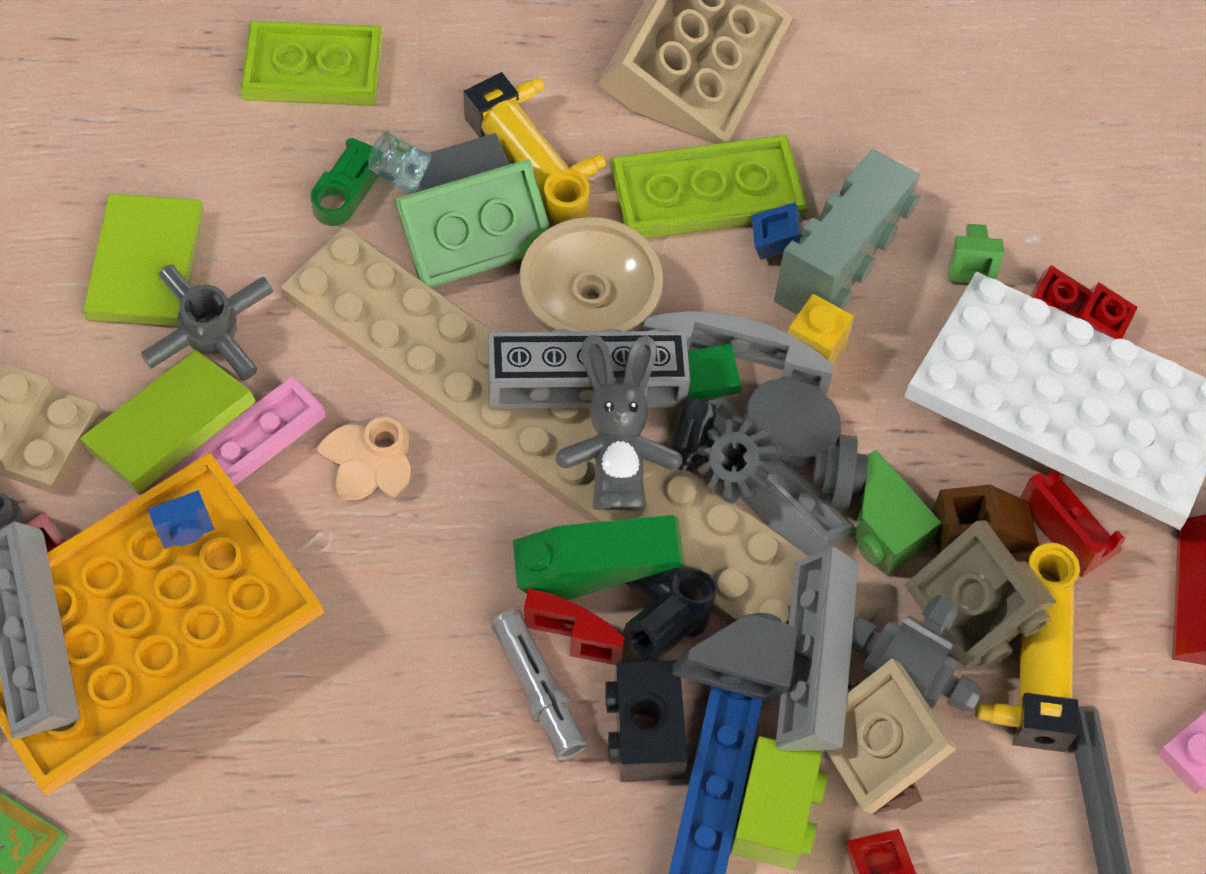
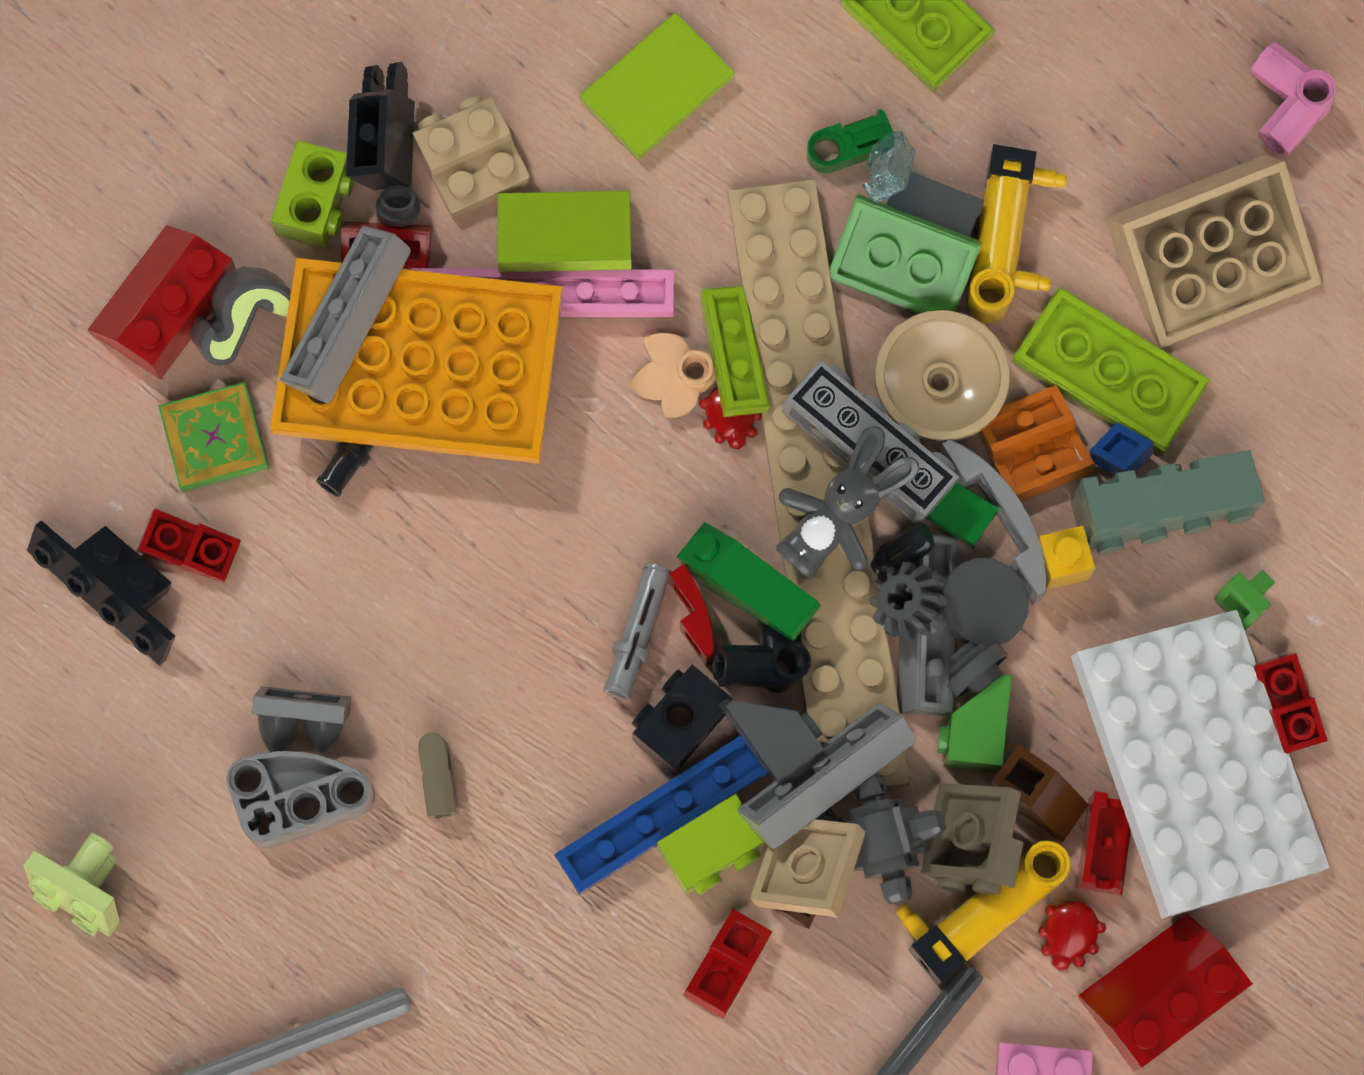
camera: 45 degrees right, 15 degrees up
(140, 771) = (343, 466): none -> black pin
(181, 520) = (497, 325): blue plate -> none
(221, 320) = (652, 193): dark grey bar -> none
(404, 398) = (734, 351): none -> lime tile
(447, 450) = (728, 428): none -> red piece
(710, 276) = (1036, 444): none -> orange slope
(1118, 613) = (1070, 934): none -> red piece

